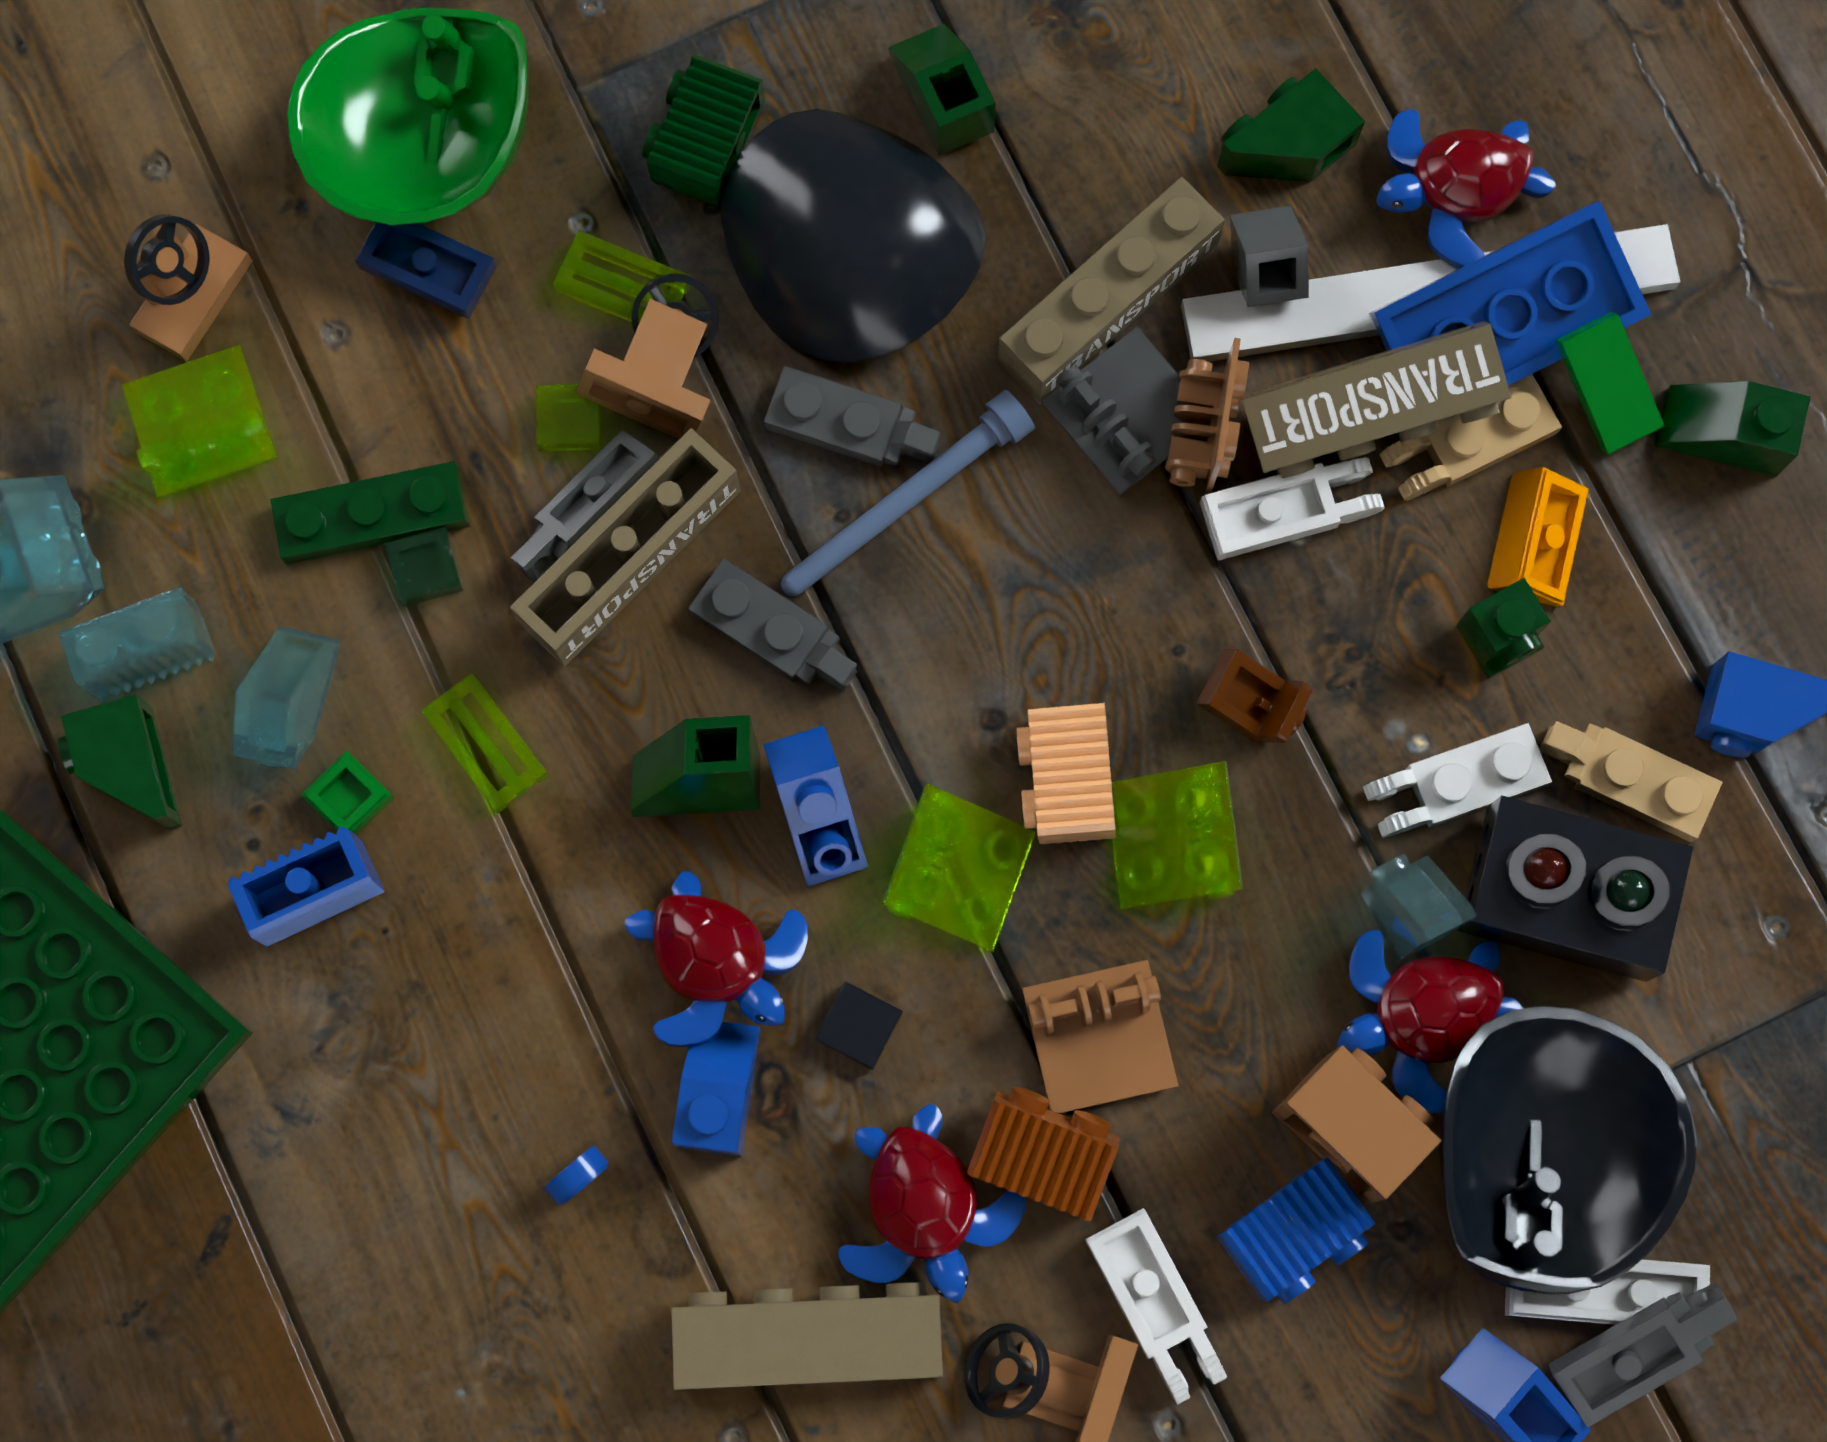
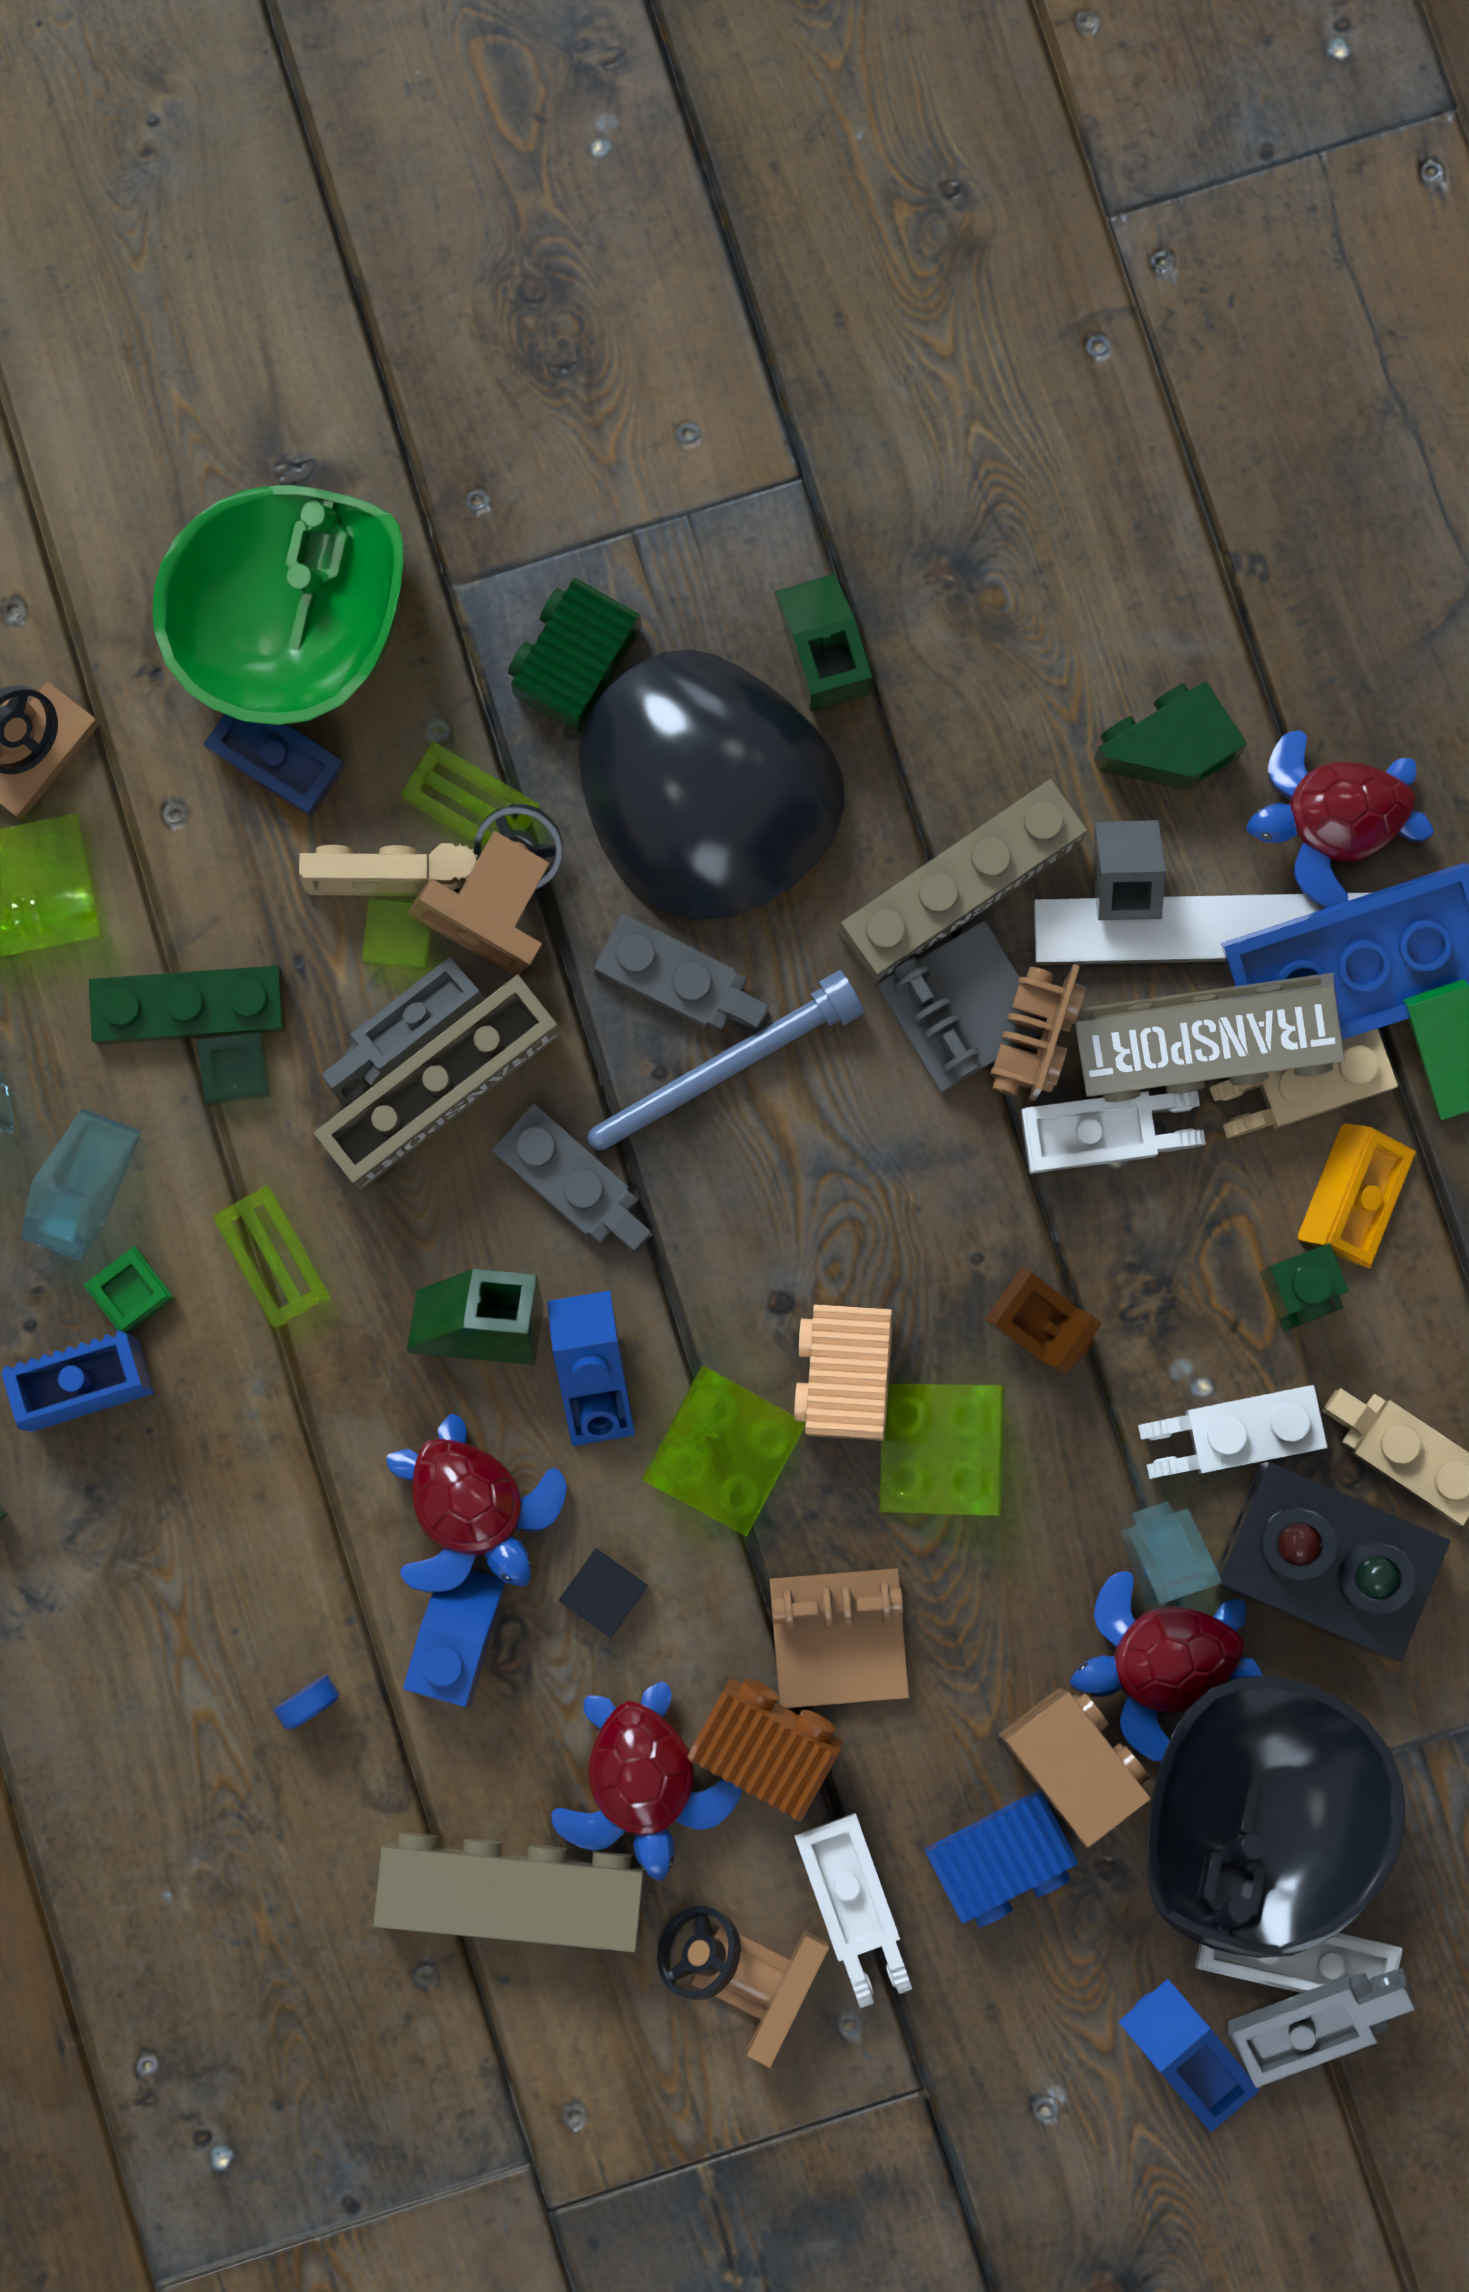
camera: 10 degrees right, 5 degrees up
(552, 358) = (390, 873): none -> tan hinge

